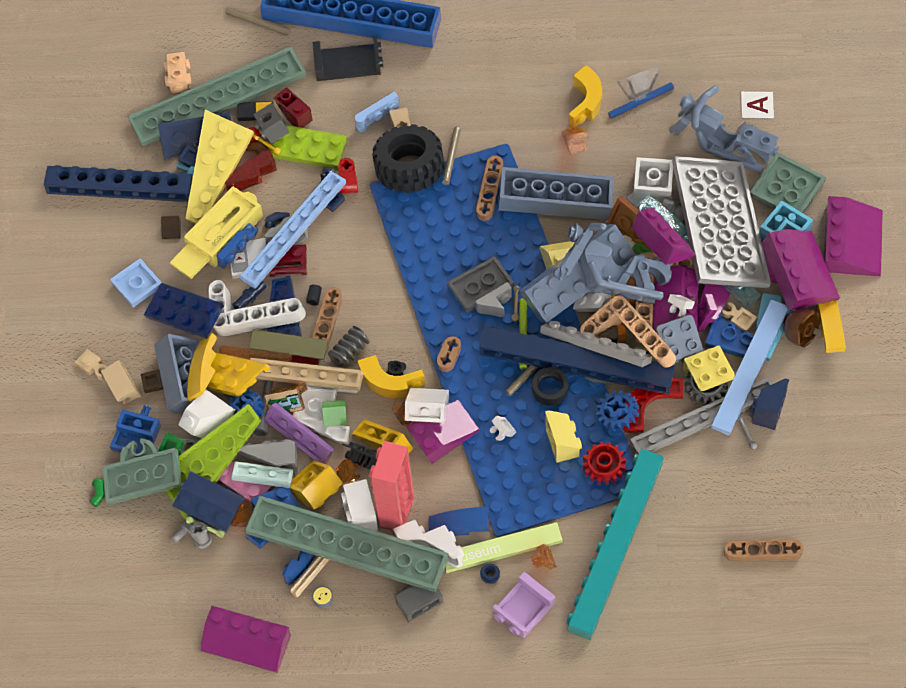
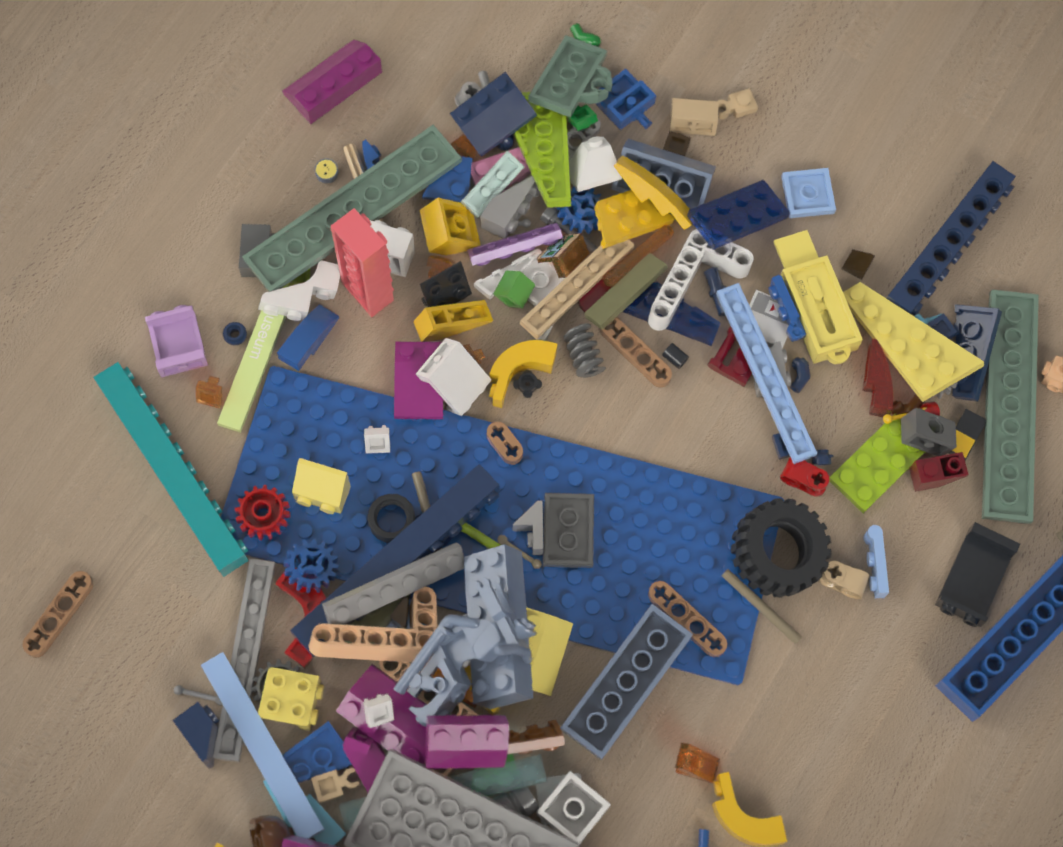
camera: 115 degrees right, 10 degrees up
(681, 337) = (342, 685): sand blue bracket -> none

